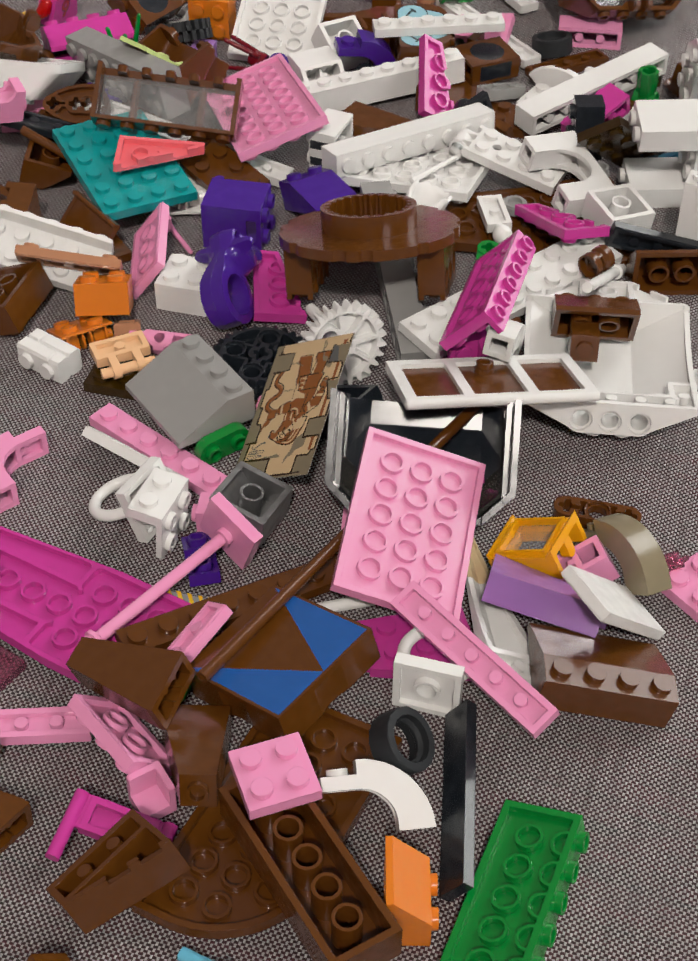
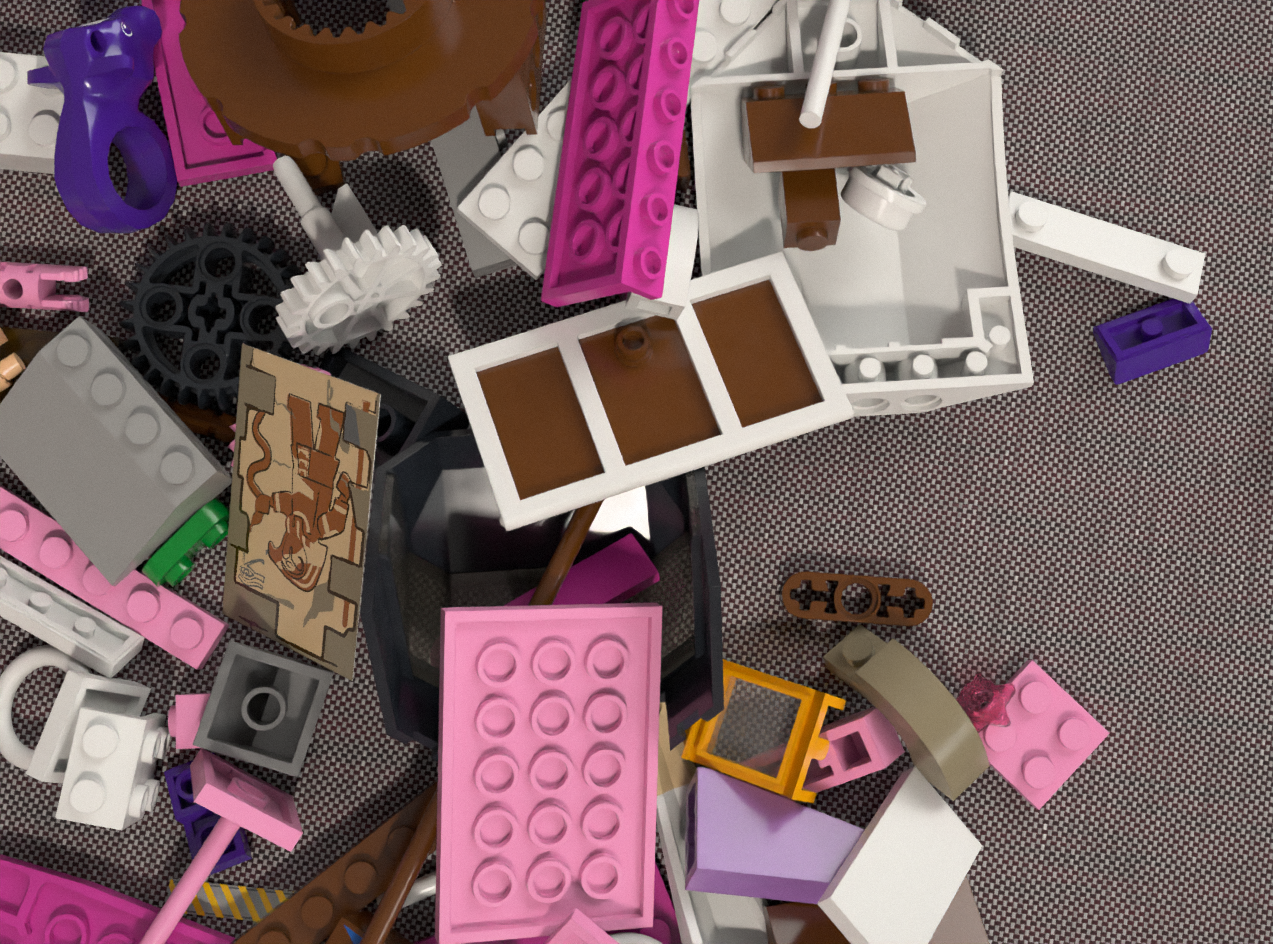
camera: 10 degrees left, 40 degrees up
(623, 340) = (882, 195): none -> white piece

